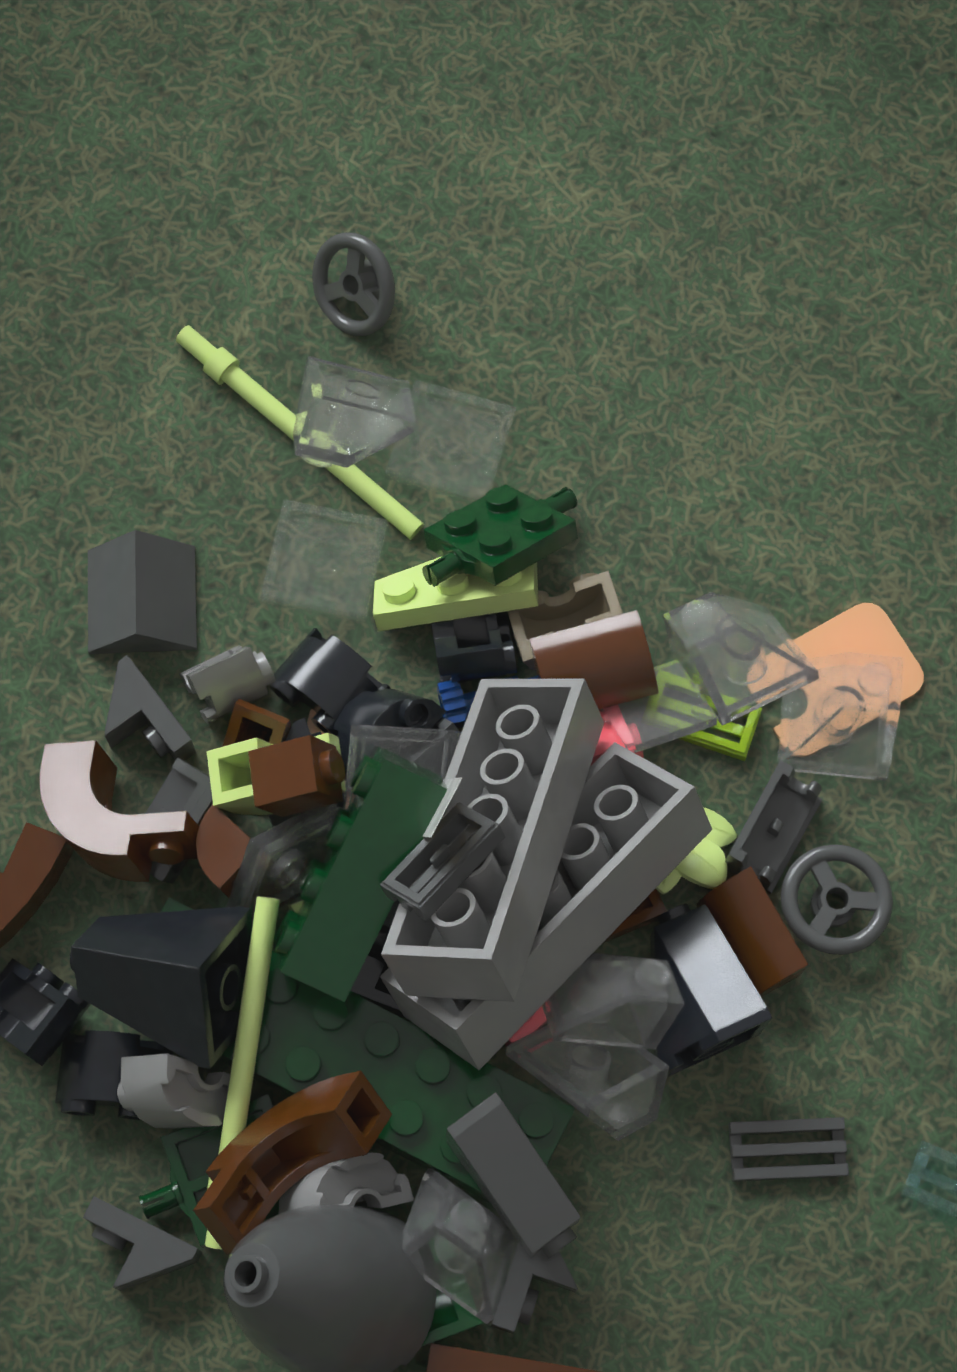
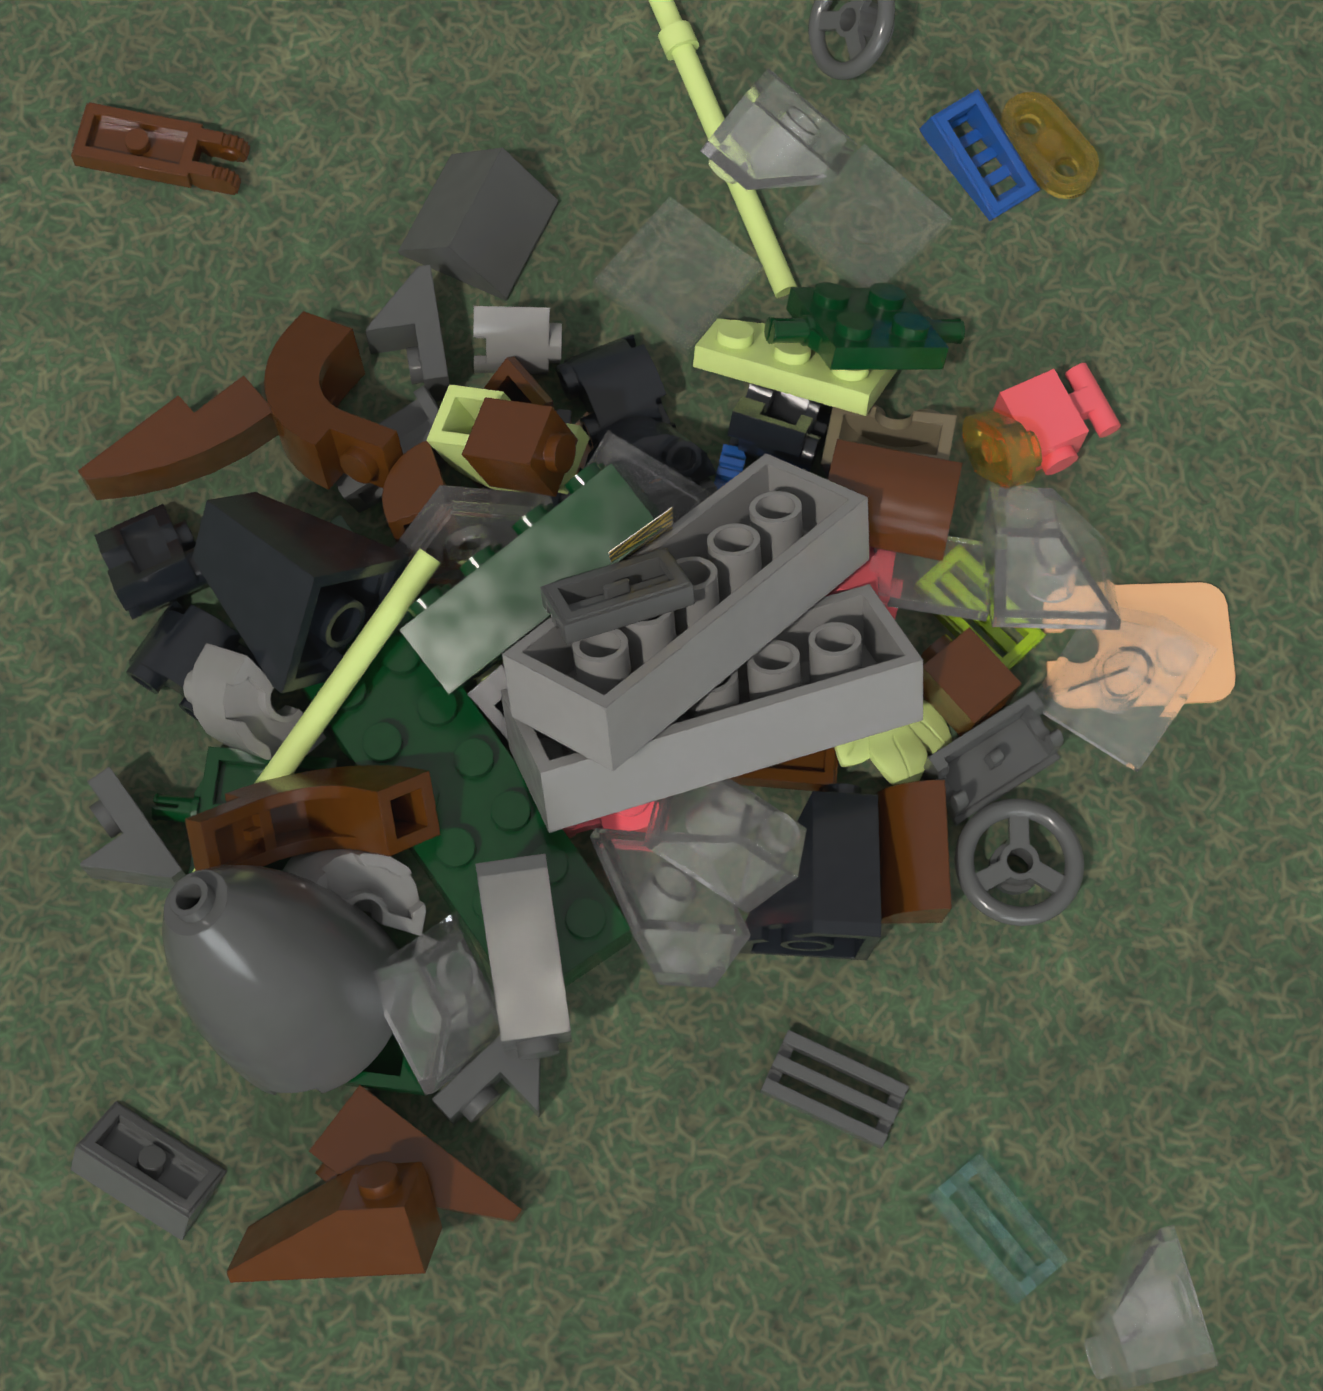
camera: 25 degrees right, 0 degrees up
(485, 351) = (951, 150): none -> blue slope
(562, 308) = (1053, 145): none -> clear yellow plate
(654, 579) = (1001, 448): none -> clear yellow plate
(674, 537) = (1057, 416): none -> coral brick
(724, 777) = (966, 681): none -> reddish brown brick

